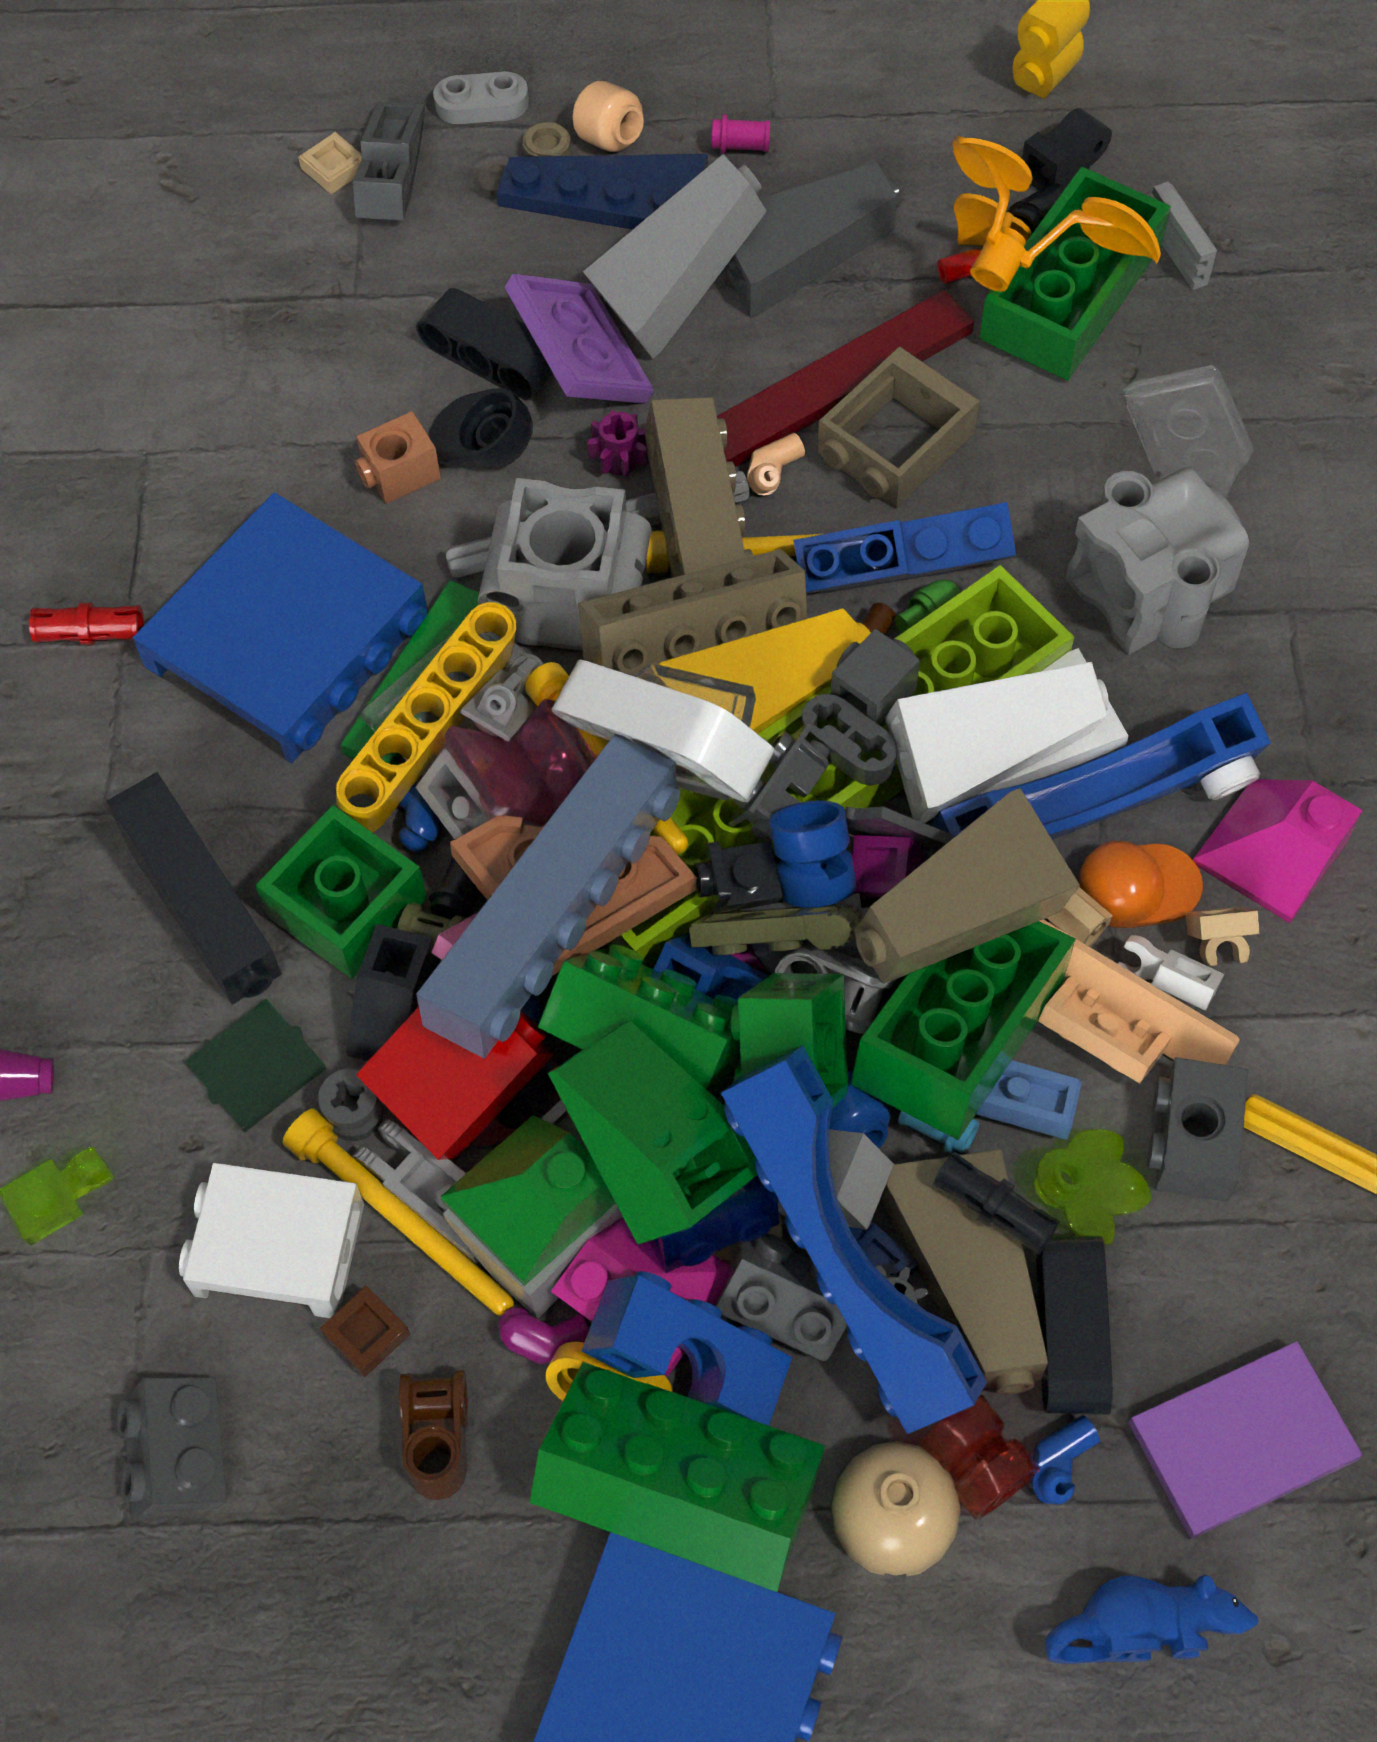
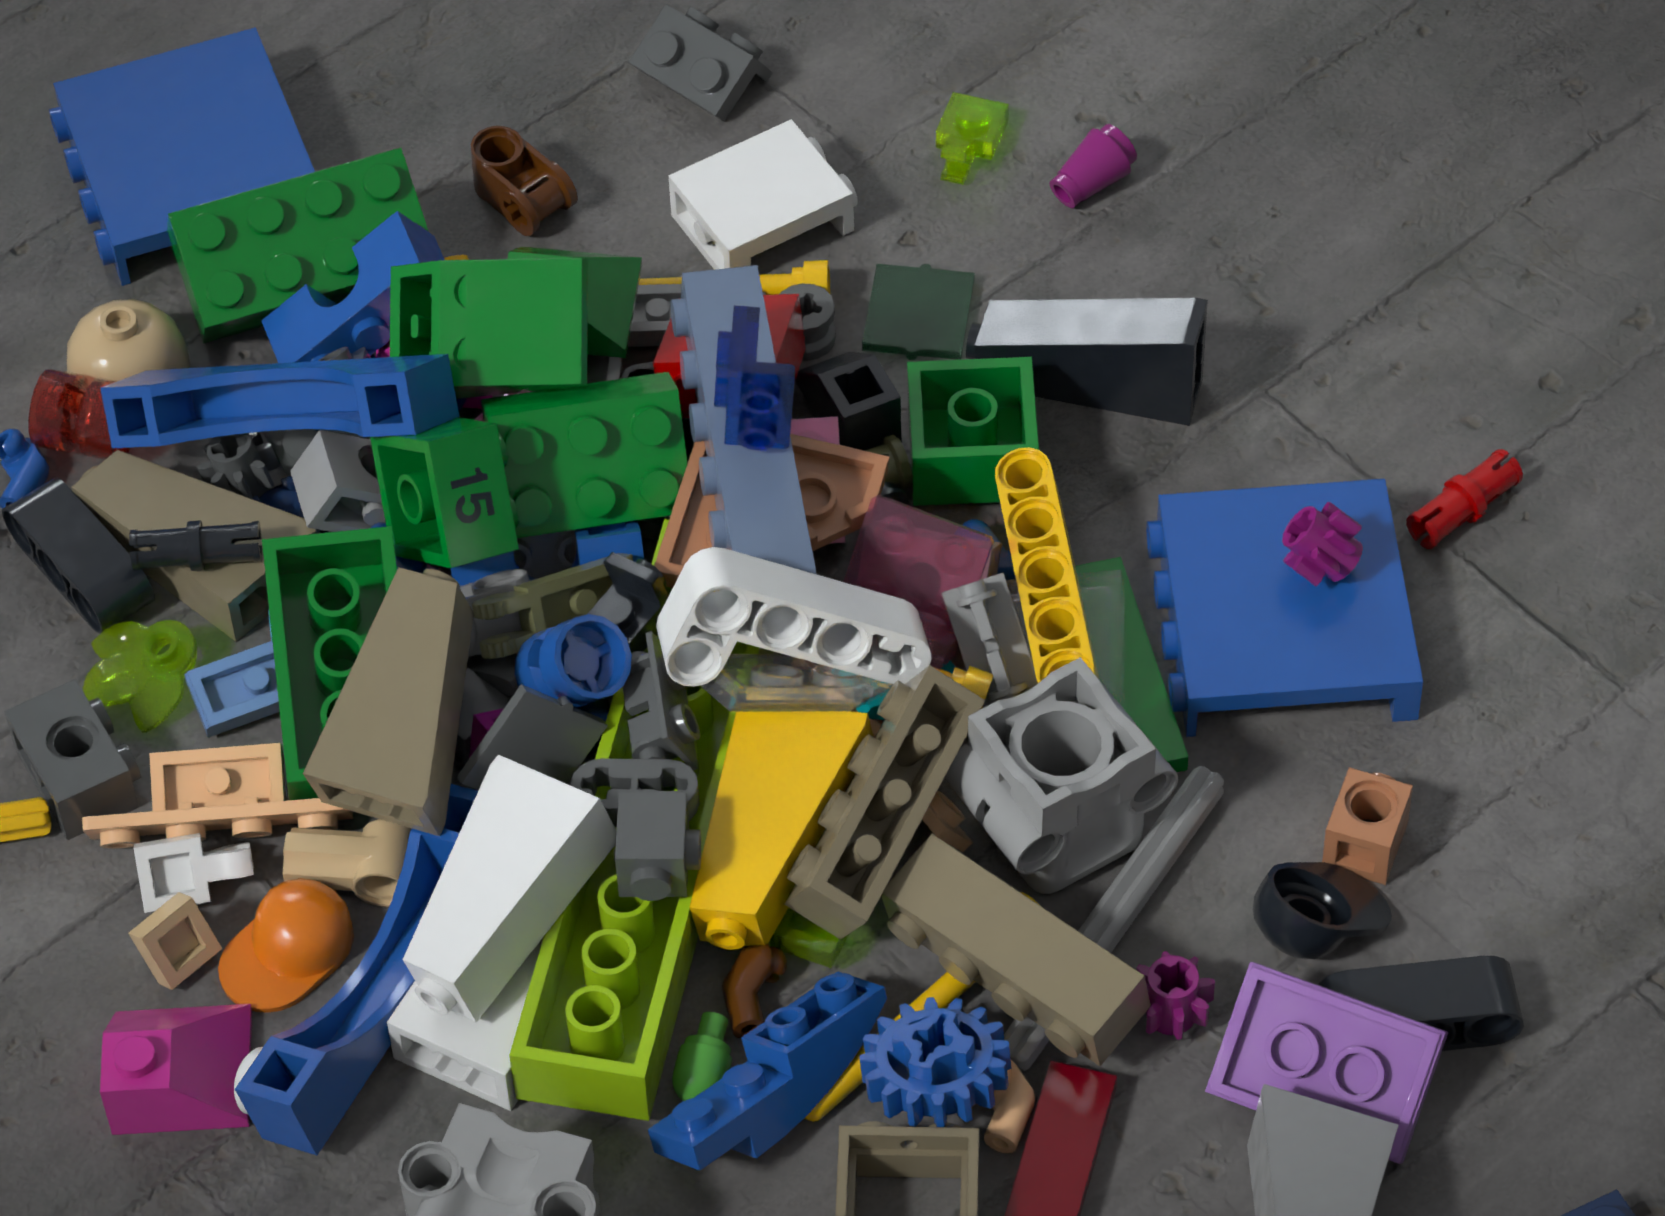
camera: 140 degrees right, 10 degrees down
(249, 599) = (1322, 543): none -> magenta gear
(365, 1331) = (634, 204): reddish brown plate -> none
(543, 844) = (753, 392): none -> clear blue bracket
(790, 496) = (935, 1062): none -> blue gear

